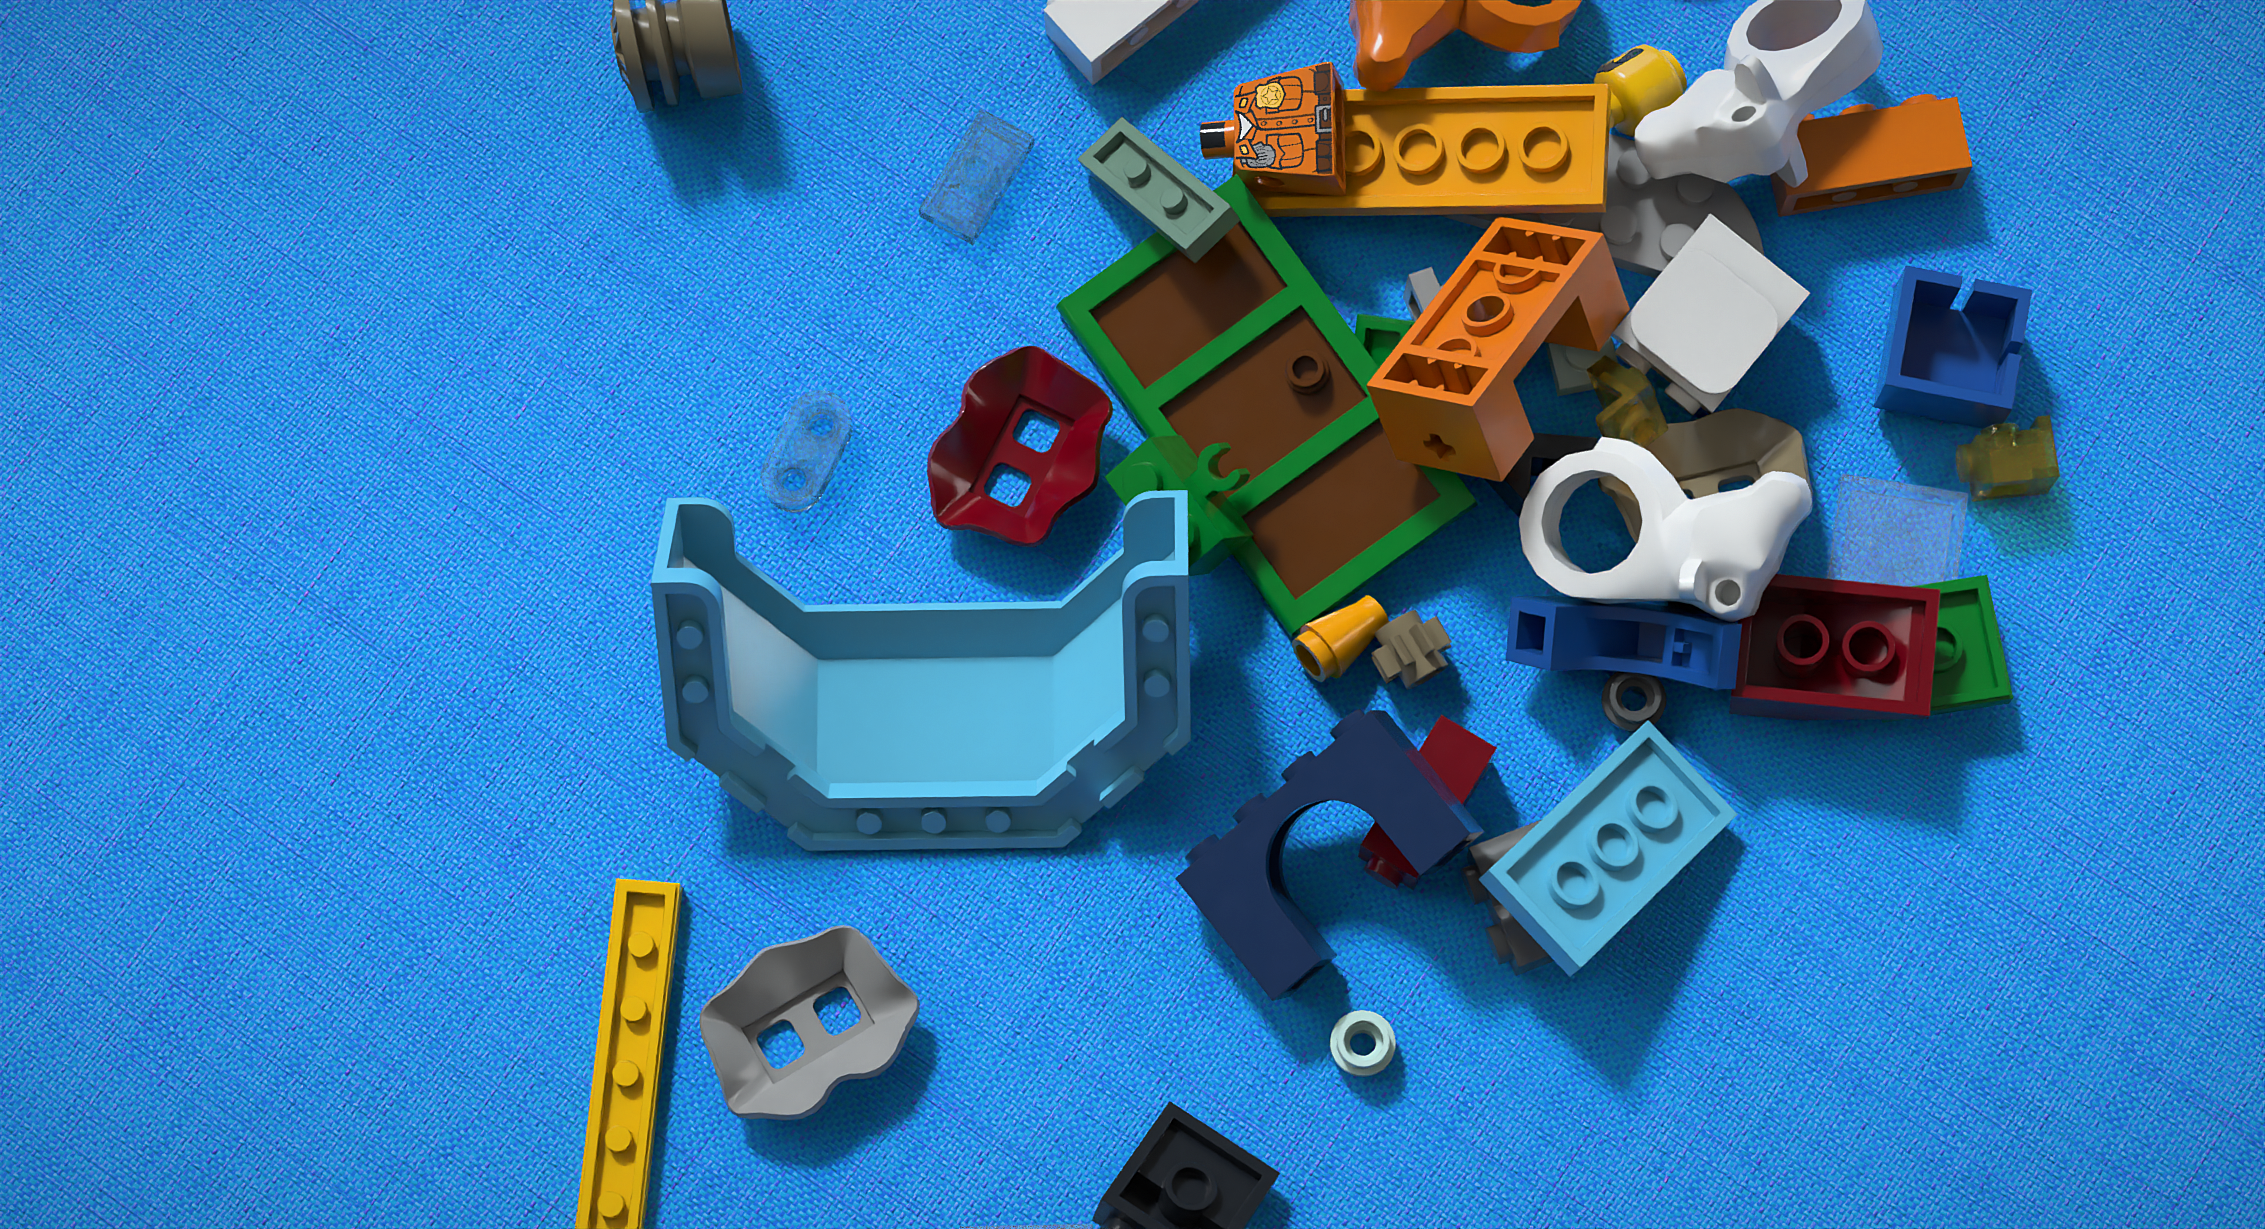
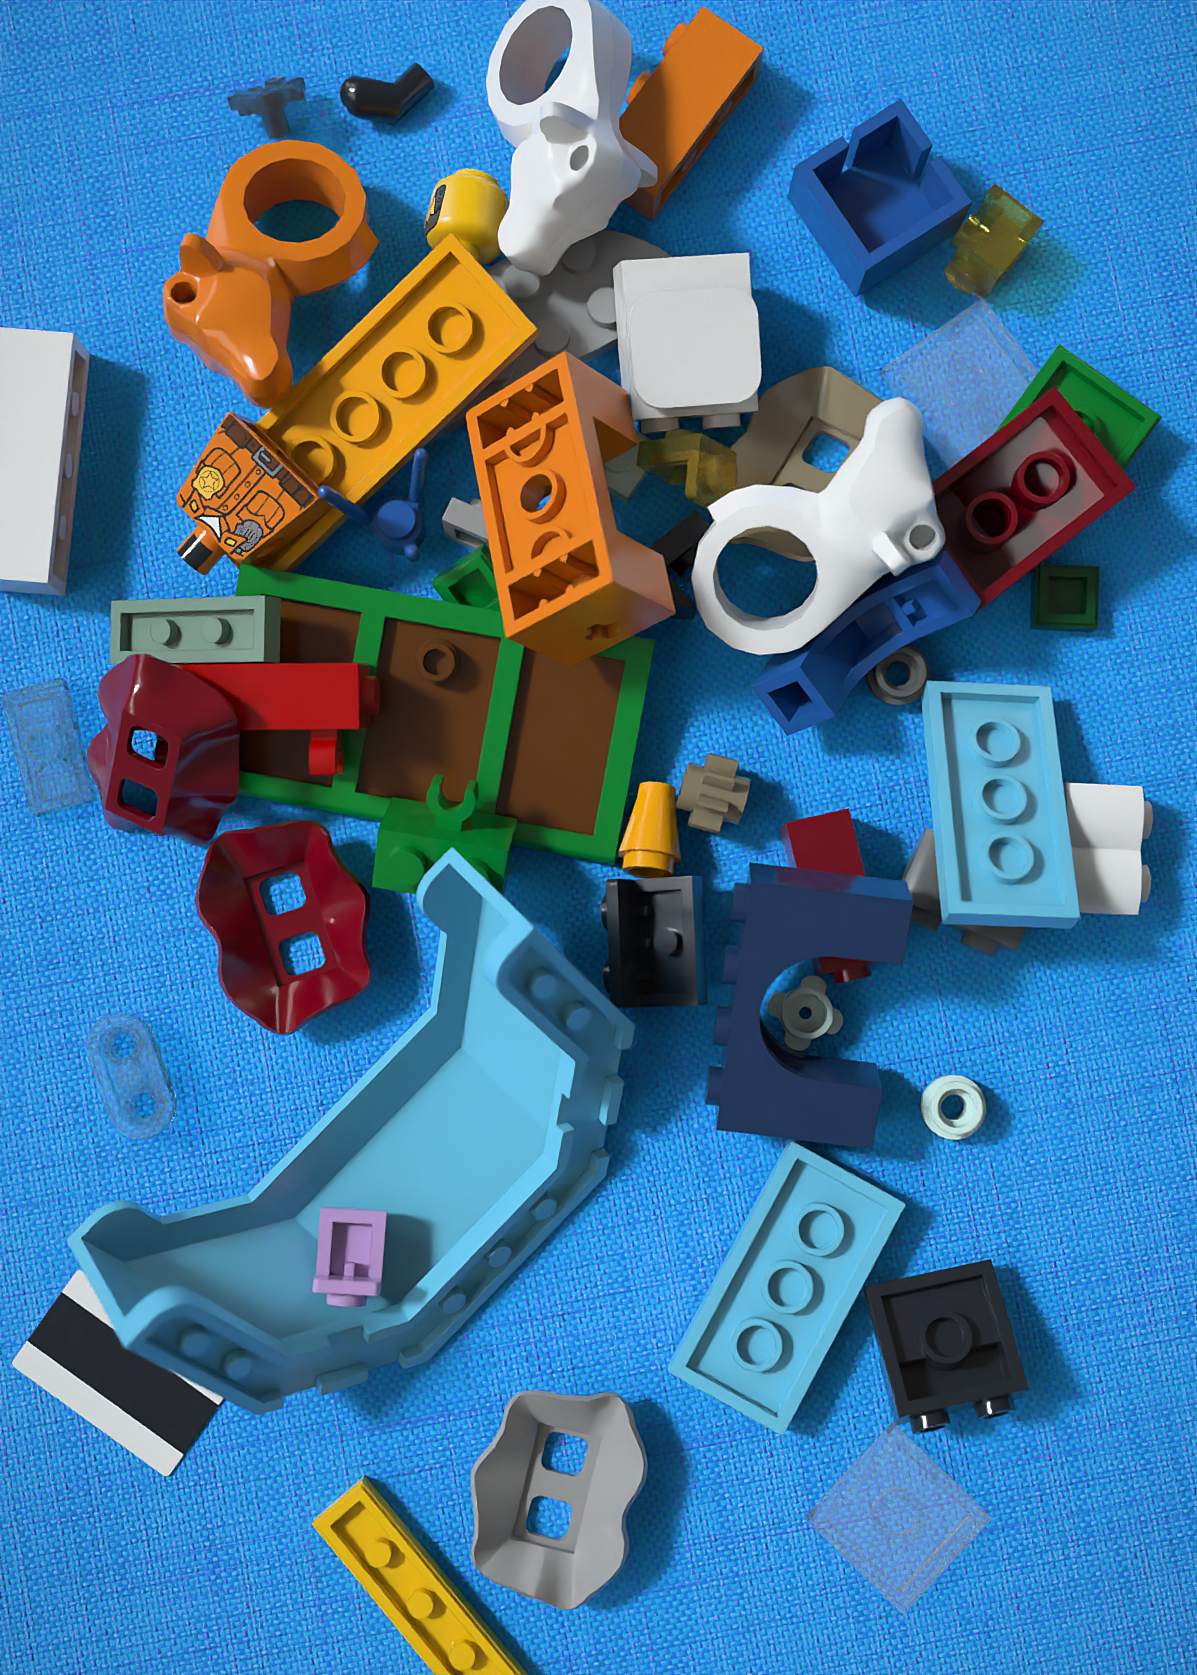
camera: 50 degrees left, 10 degrees up
(591, 651) = (118, 1391): none -> black sticker
(834, 713) = (350, 1255): none -> lavender bracket
(1074, 278) = (201, 756): none -> dark red piece
(1113, 1046) = (785, 1287): none -> medium azure plate
(1152, 269) = (295, 697): none -> red brick
(1263, 713) = (655, 942): none -> black bracket
(1317, 854) = (822, 1019): none -> light aqua plate
(1377, 250) = (396, 520): none -> blue plant
(1653, 961) = (1106, 845): none -> white brick
(1814, 765) = (1064, 598): none -> dark green tile

